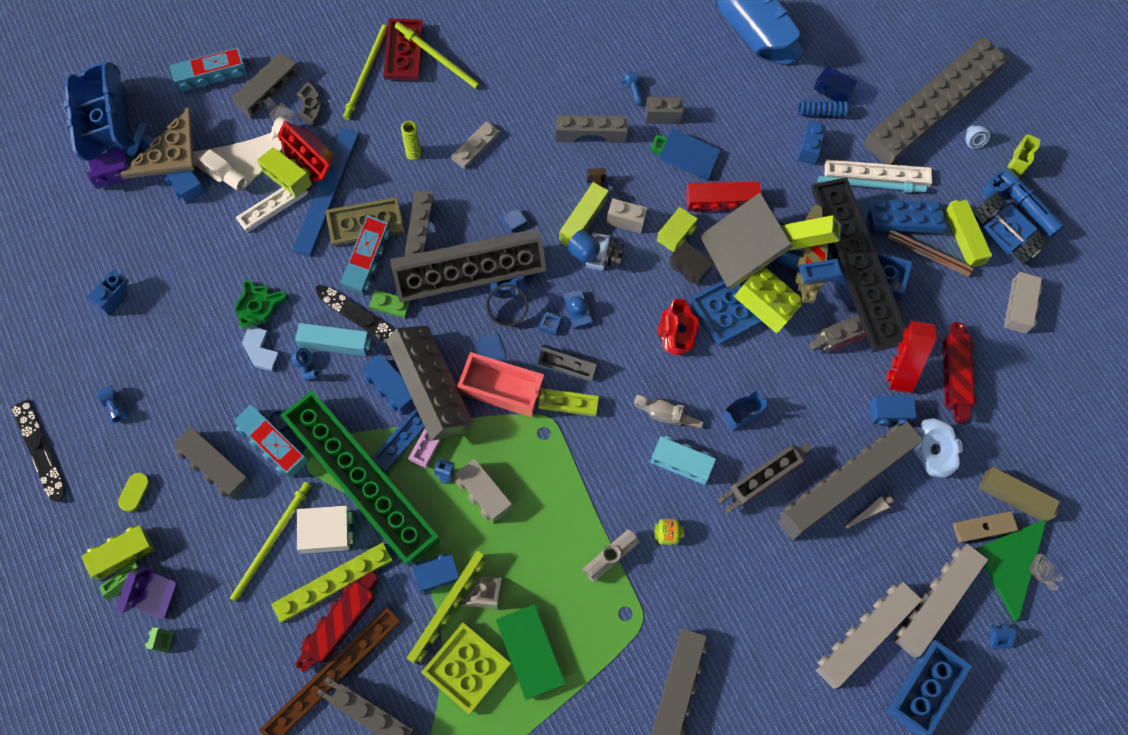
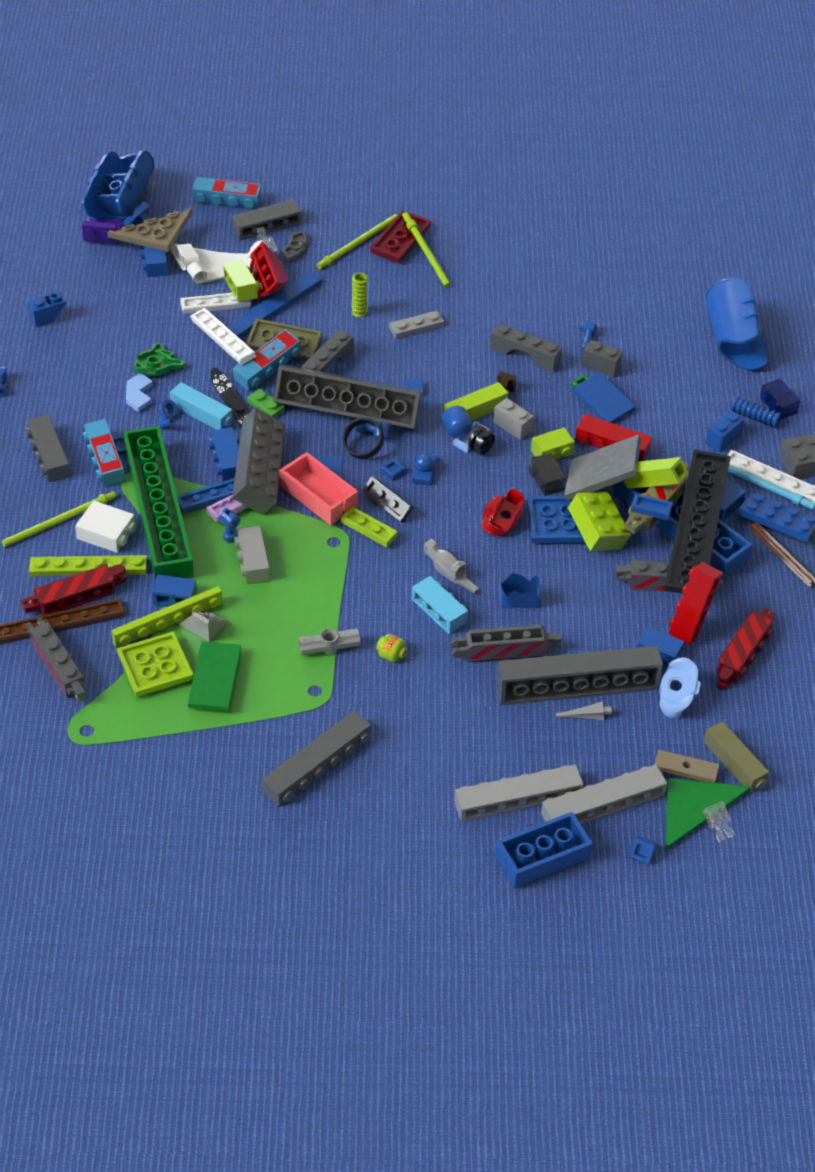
camera: 30 degrees right, 20 degrees down
(307, 247) = (223, 336): none -> white tile

